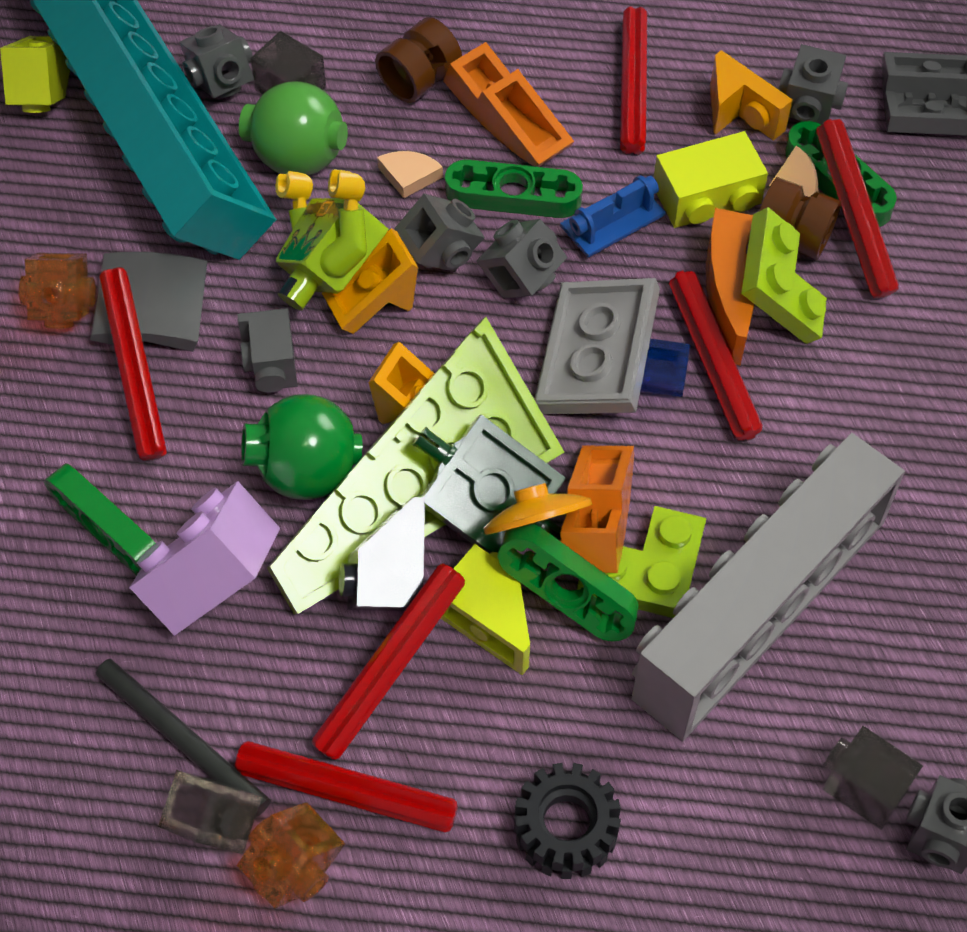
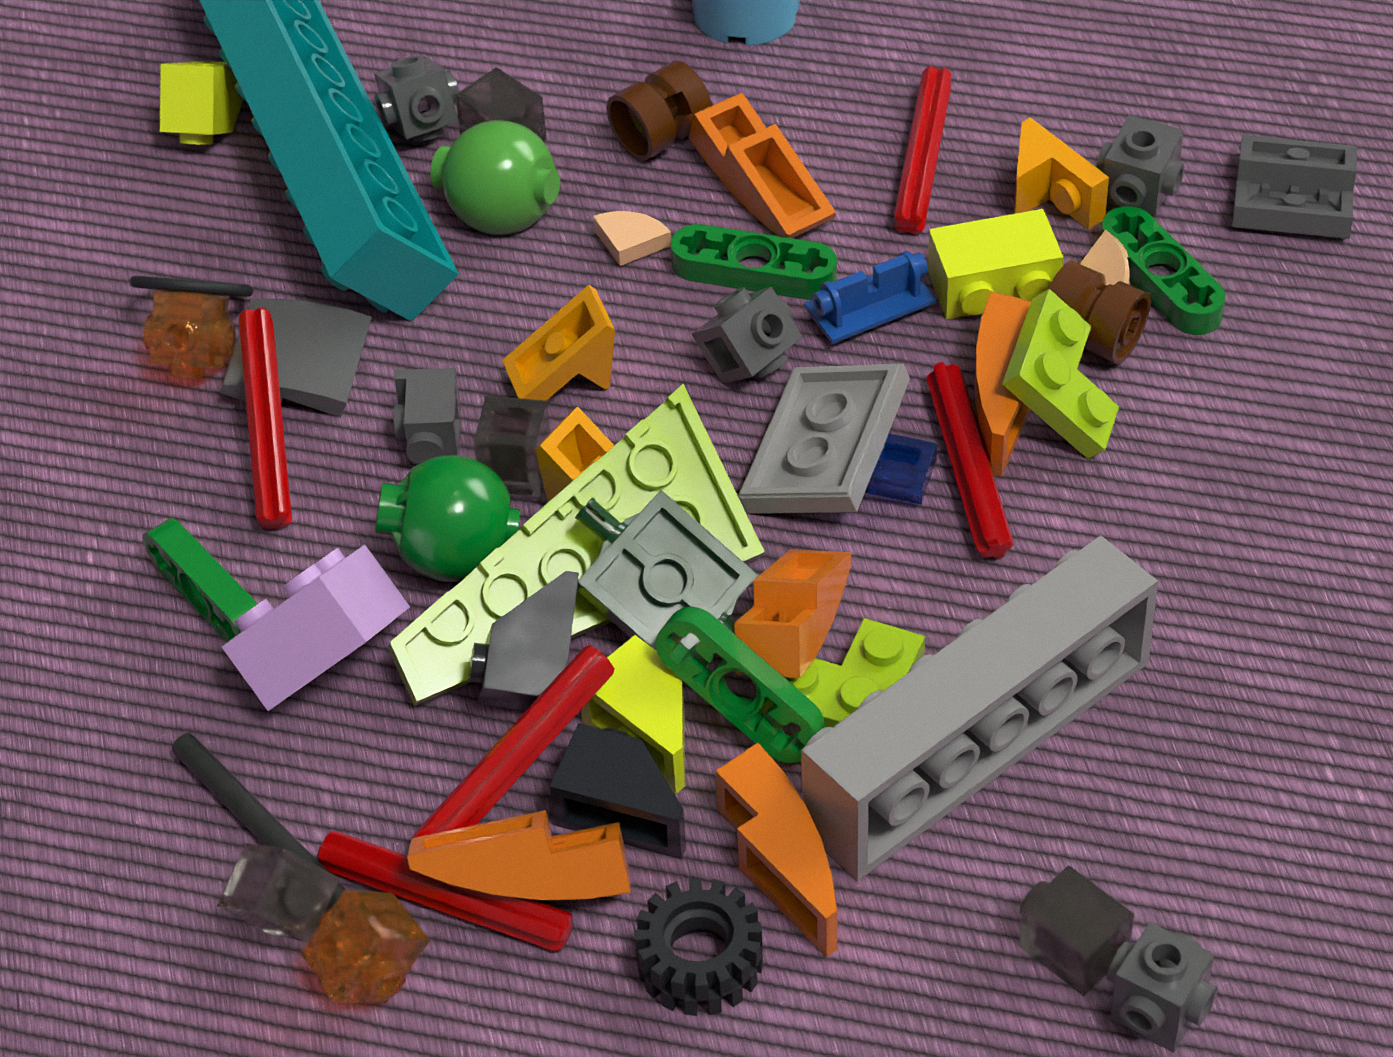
camera: 10 degrees right, 10 degrees down
(52, 246) = (193, 286): none -> black piece
(327, 235) = (513, 293): lime torso -> none
(344, 372) = (508, 438): none -> clear smoke brick
(411, 759) = (525, 860): none -> orange slope
(440, 232) = (652, 300): dark grey brick -> none
(479, 684) = (614, 780): none -> black slope
(534, 506) = (710, 590): light orange dish -> none
(621, 721) = (779, 843): none -> orange slope
(857, 208) = (1171, 306): red axle -> none

